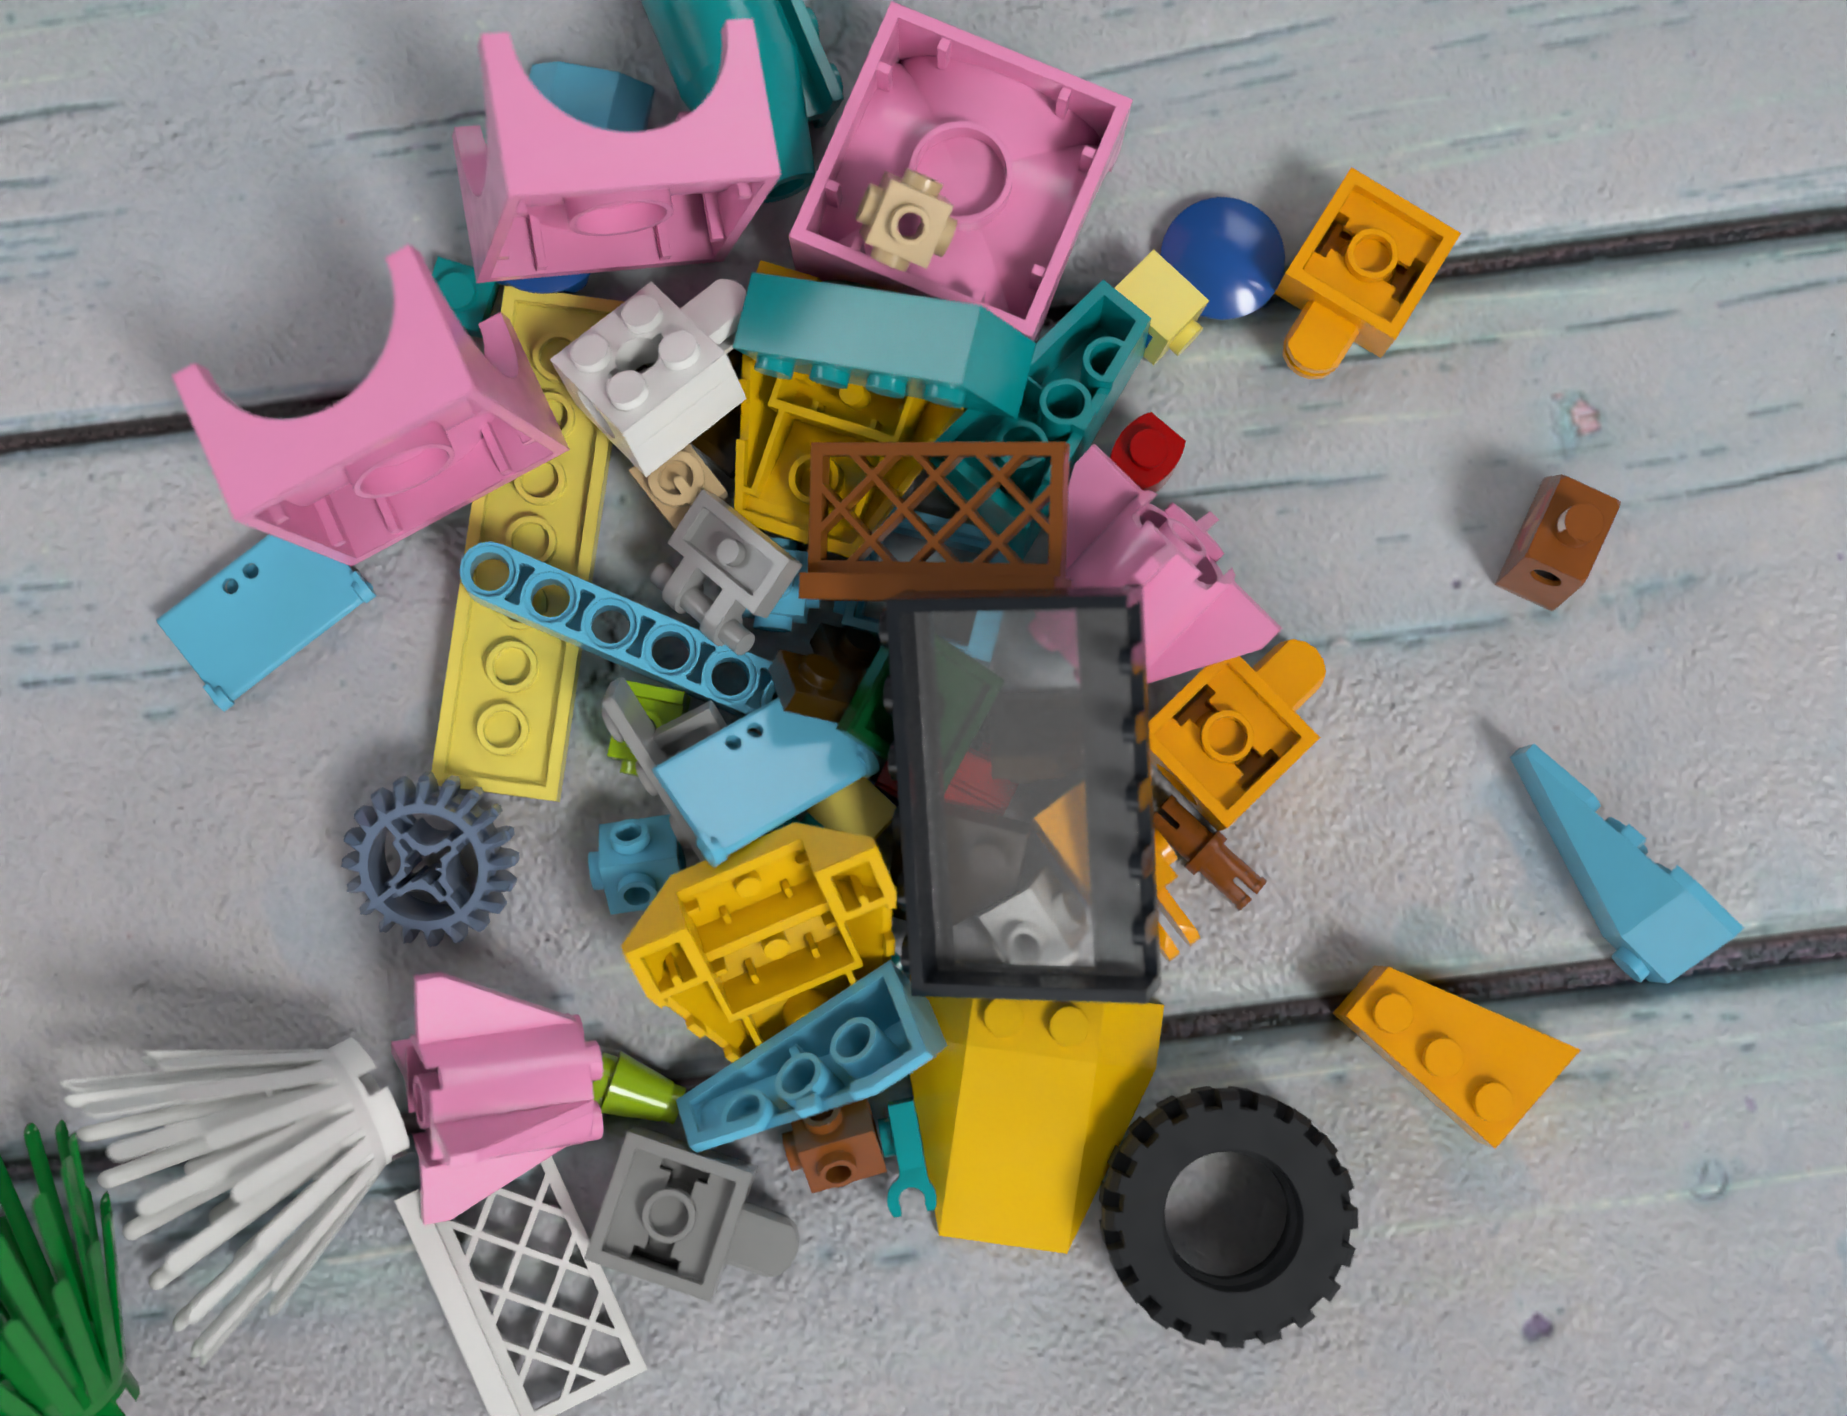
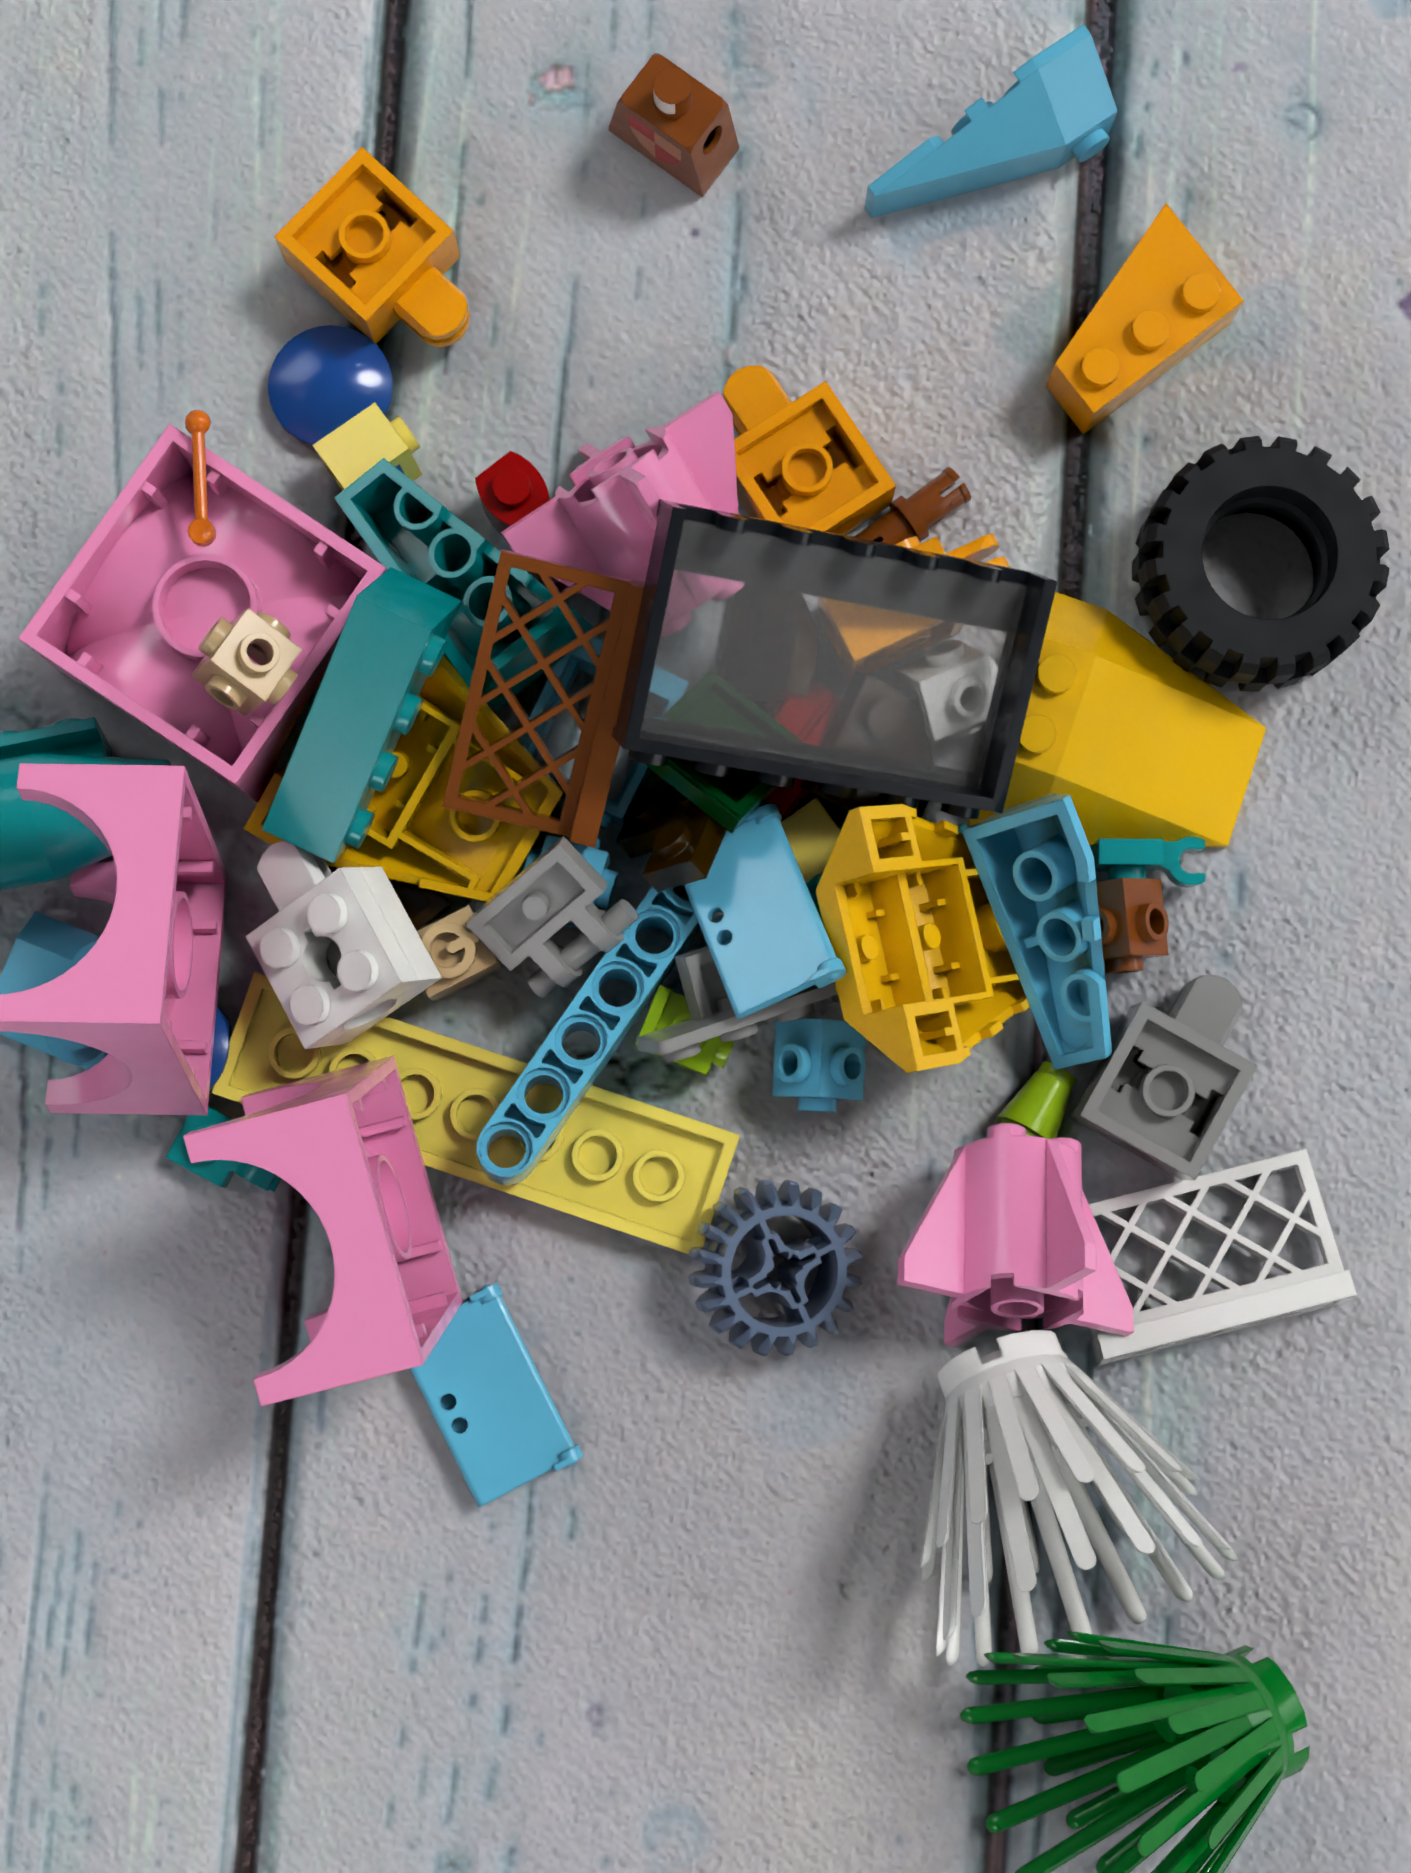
camera: 80 degrees left, 0 degrees up
(1031, 150) = (201, 529): none -> orange hinge

